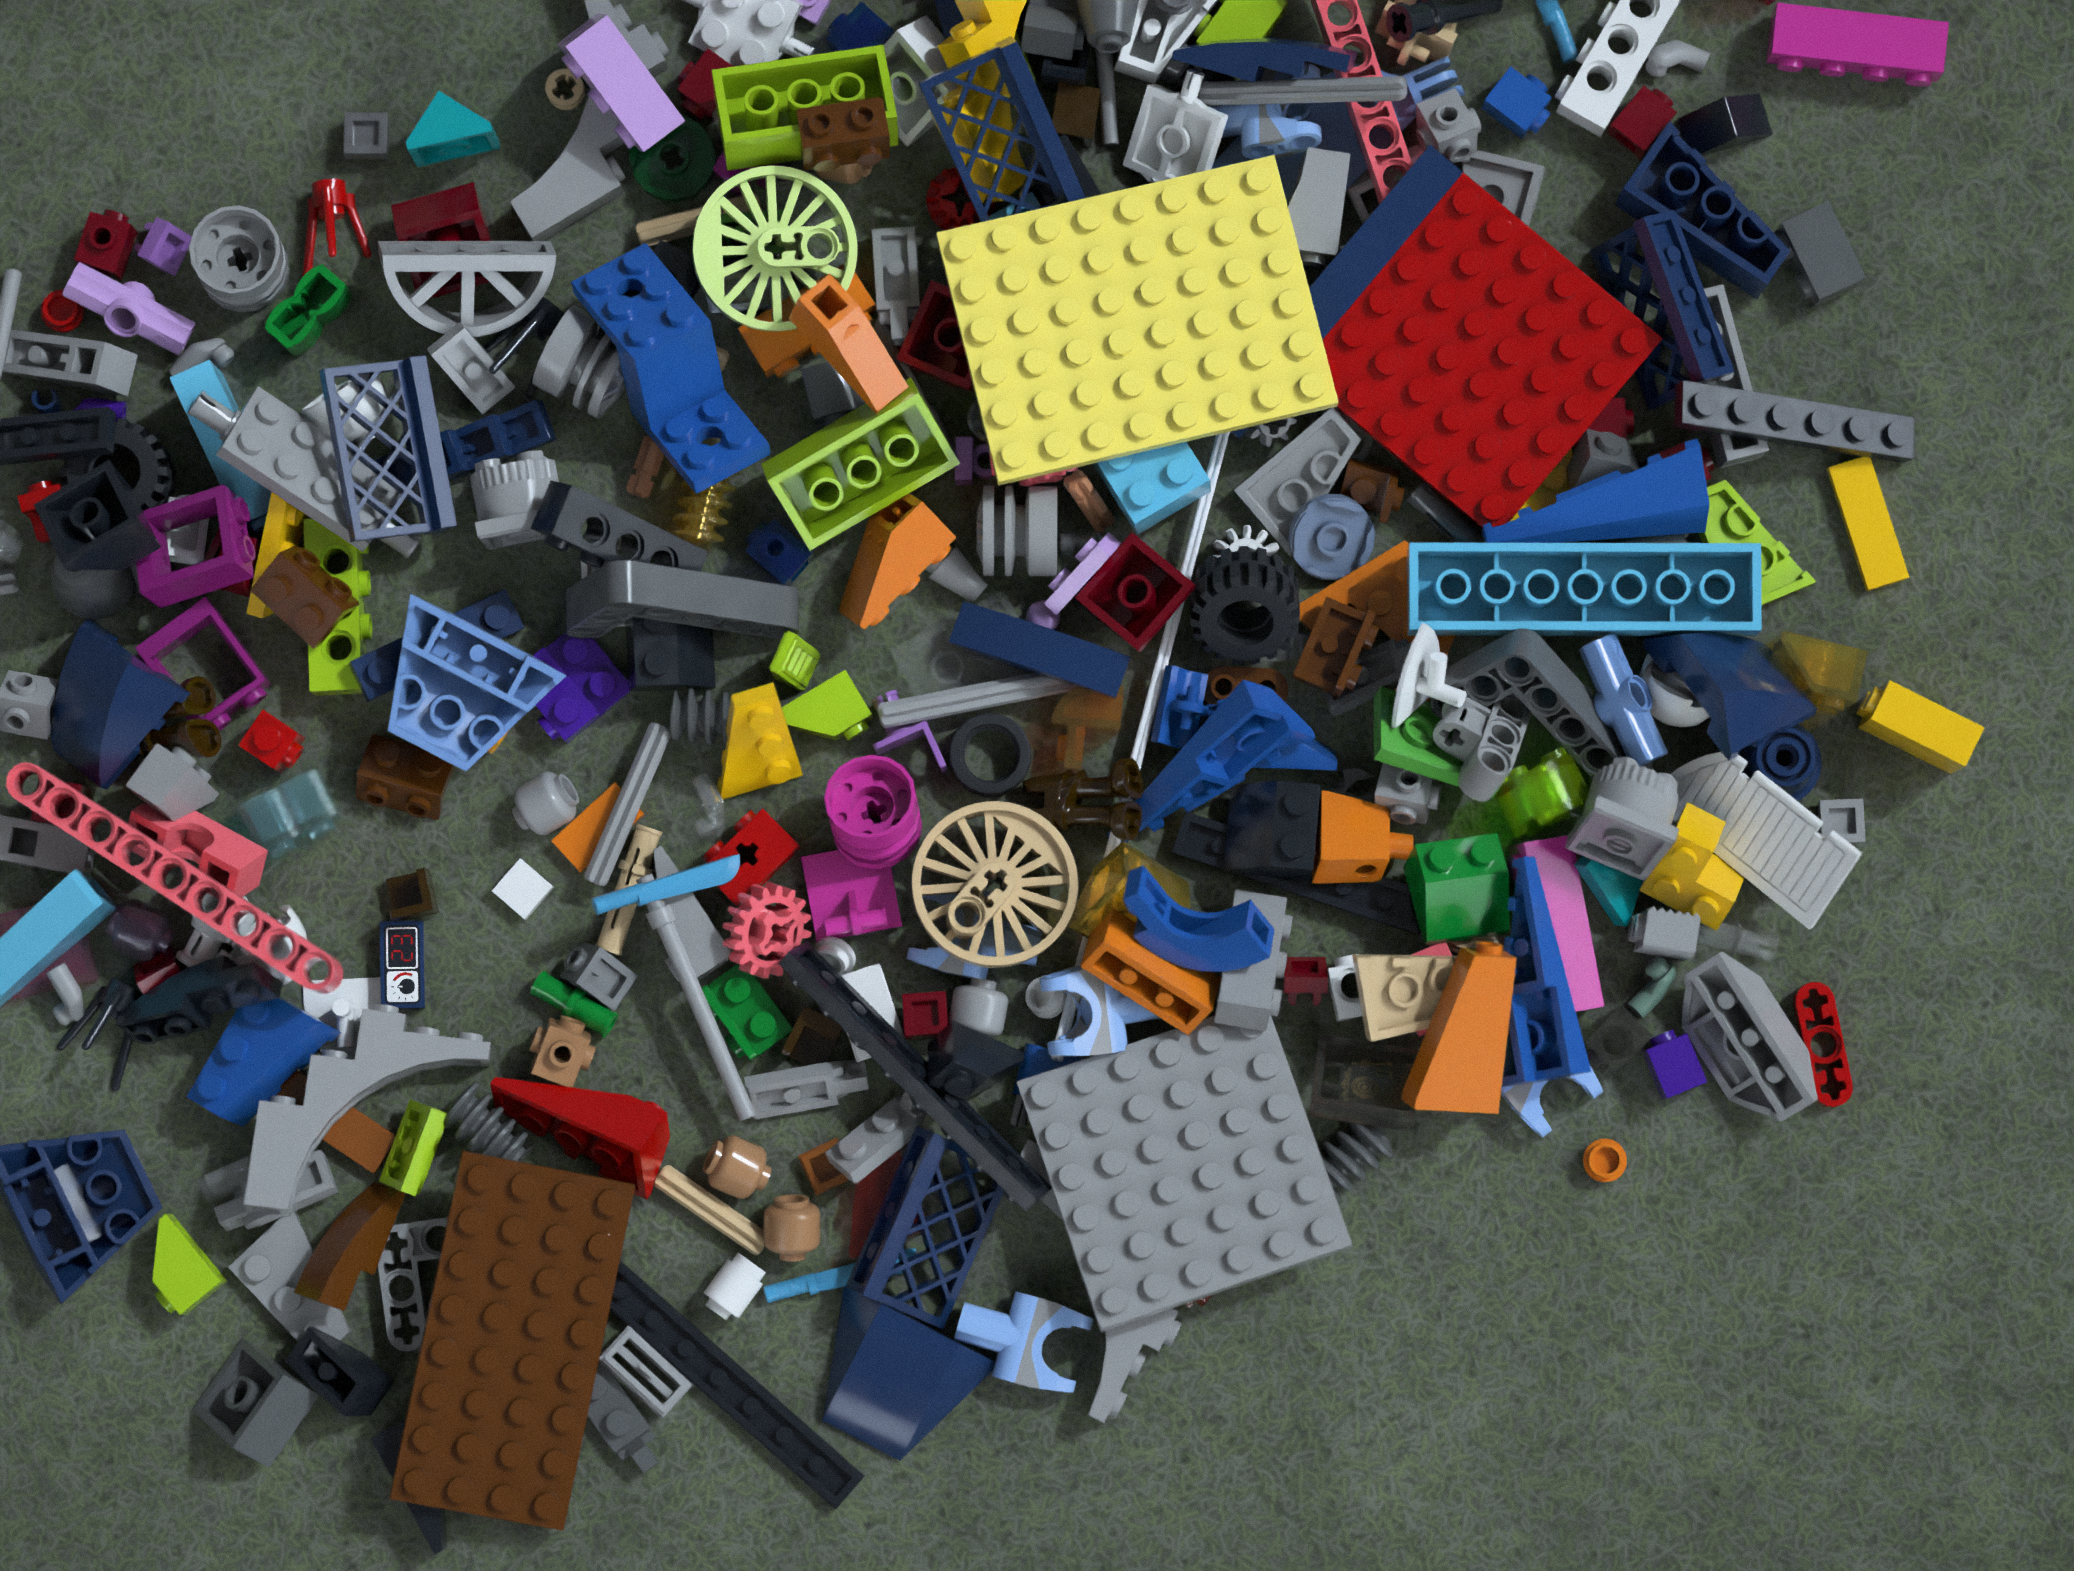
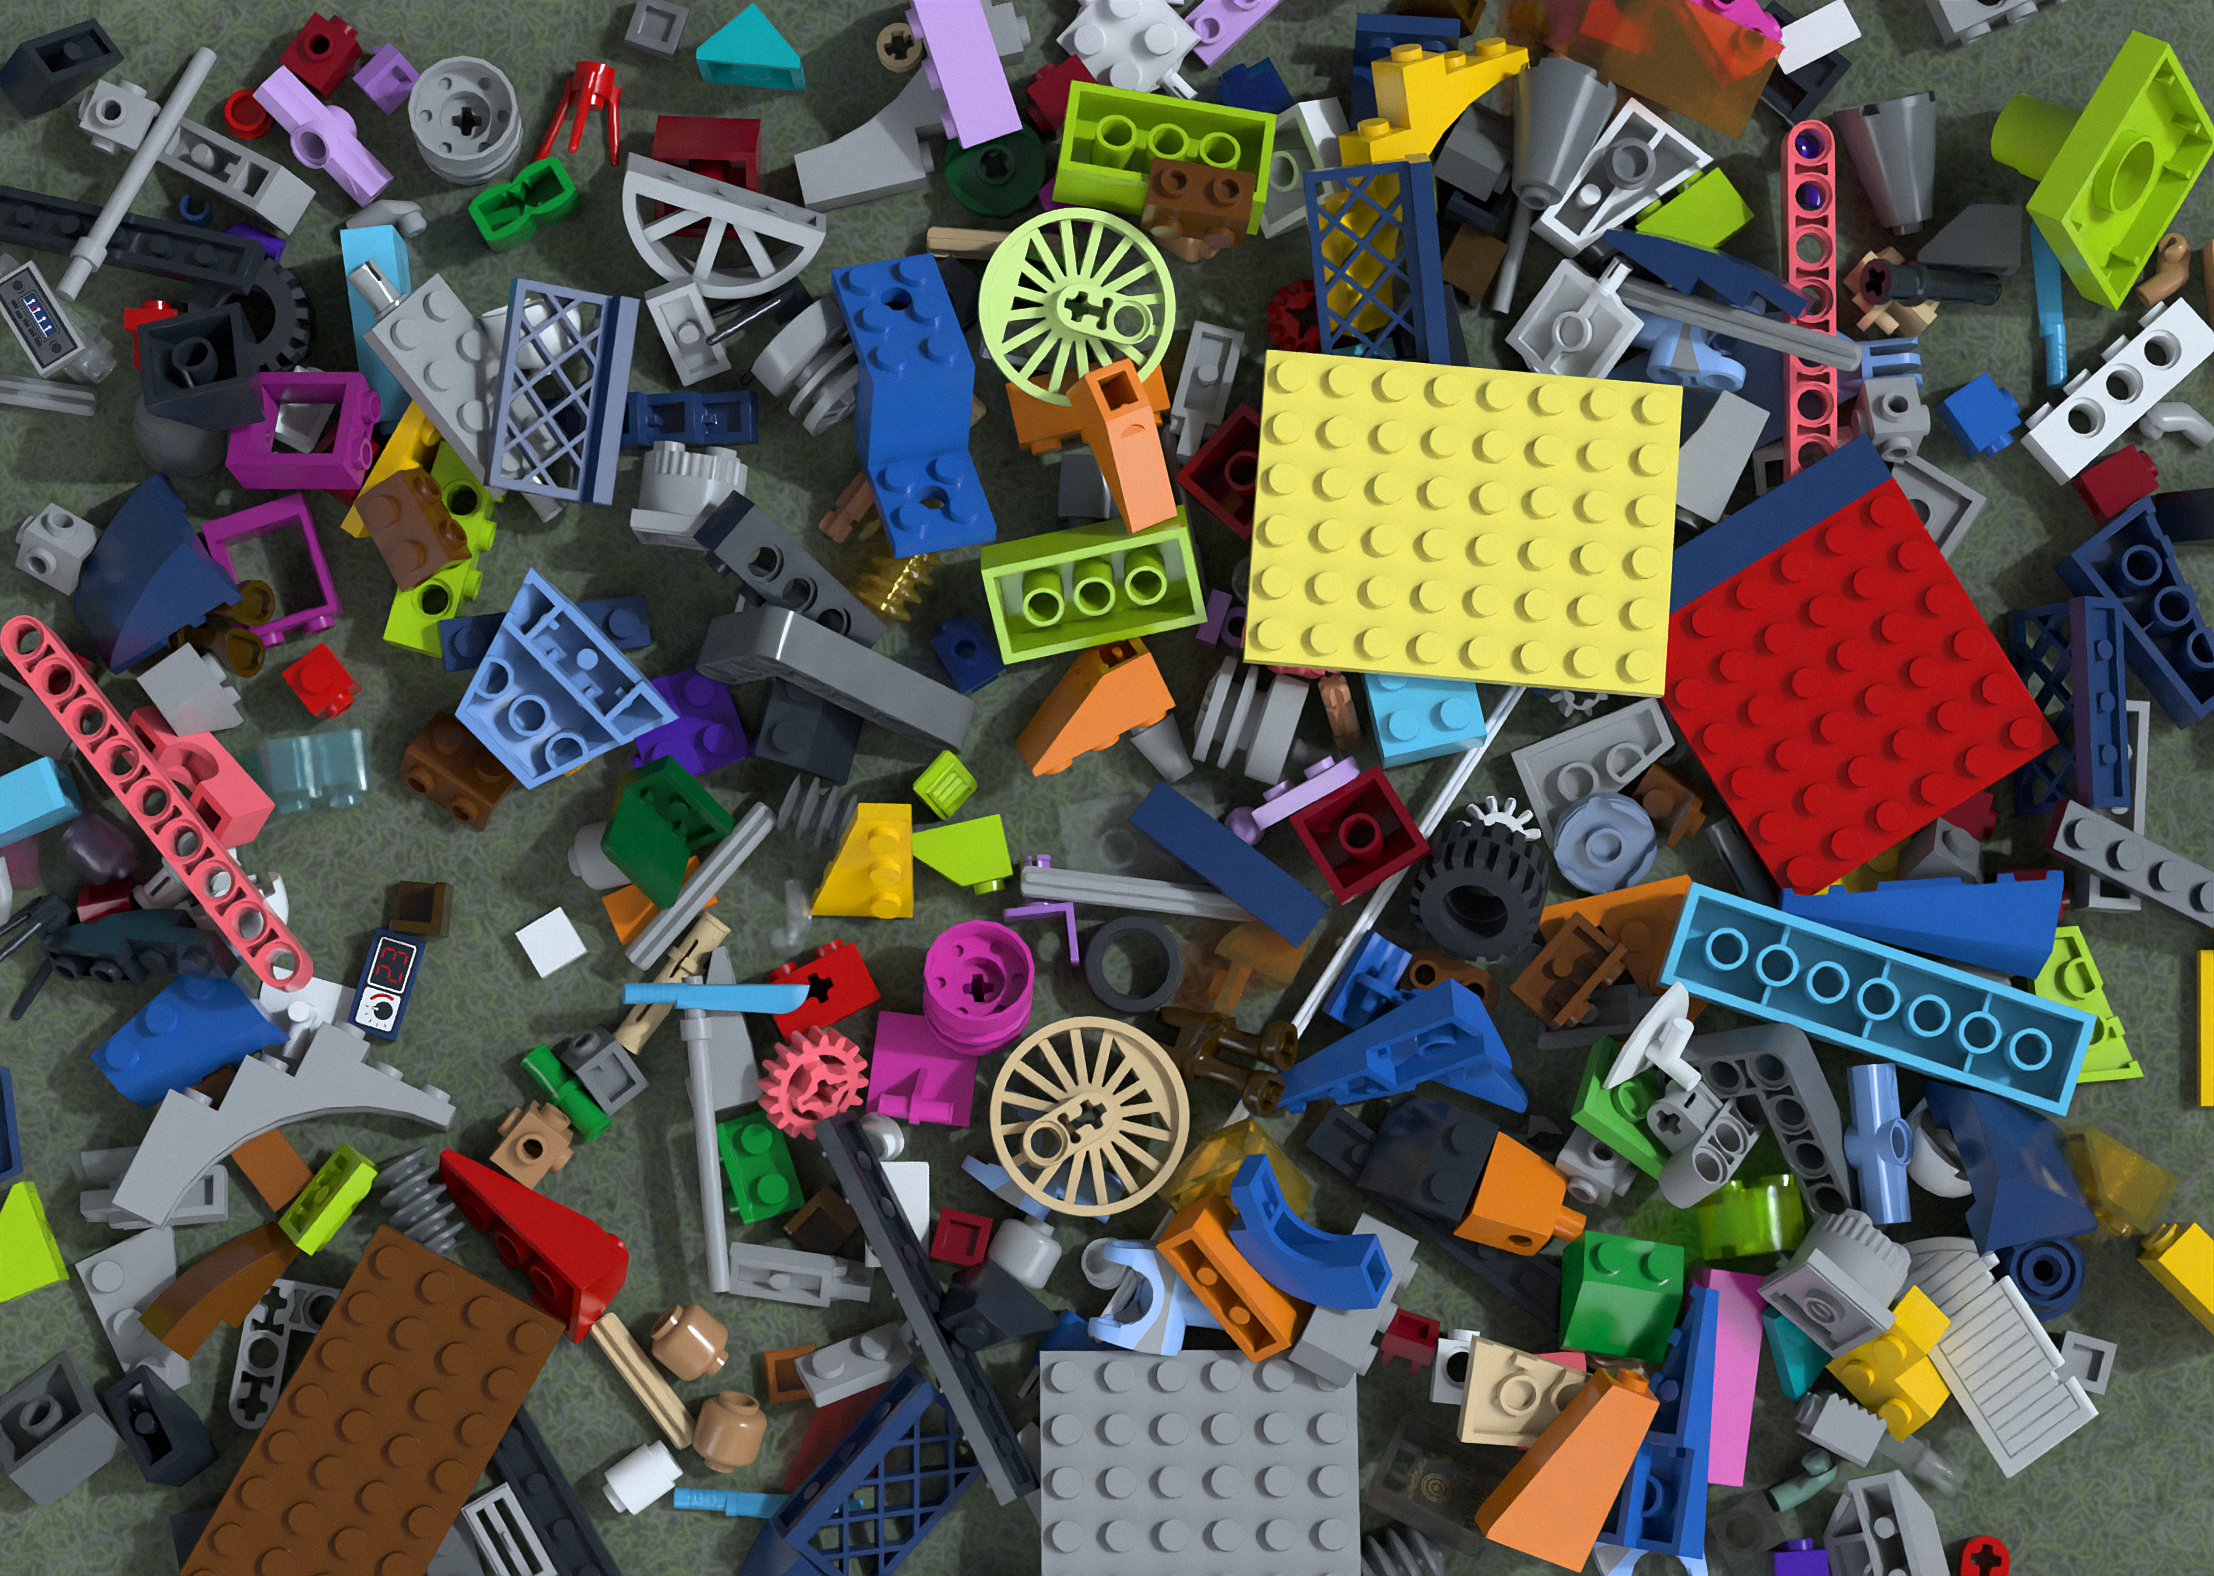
camera: 15 degrees right, 0 degrees up
(576, 767) = (657, 824): none -> dark green bracket

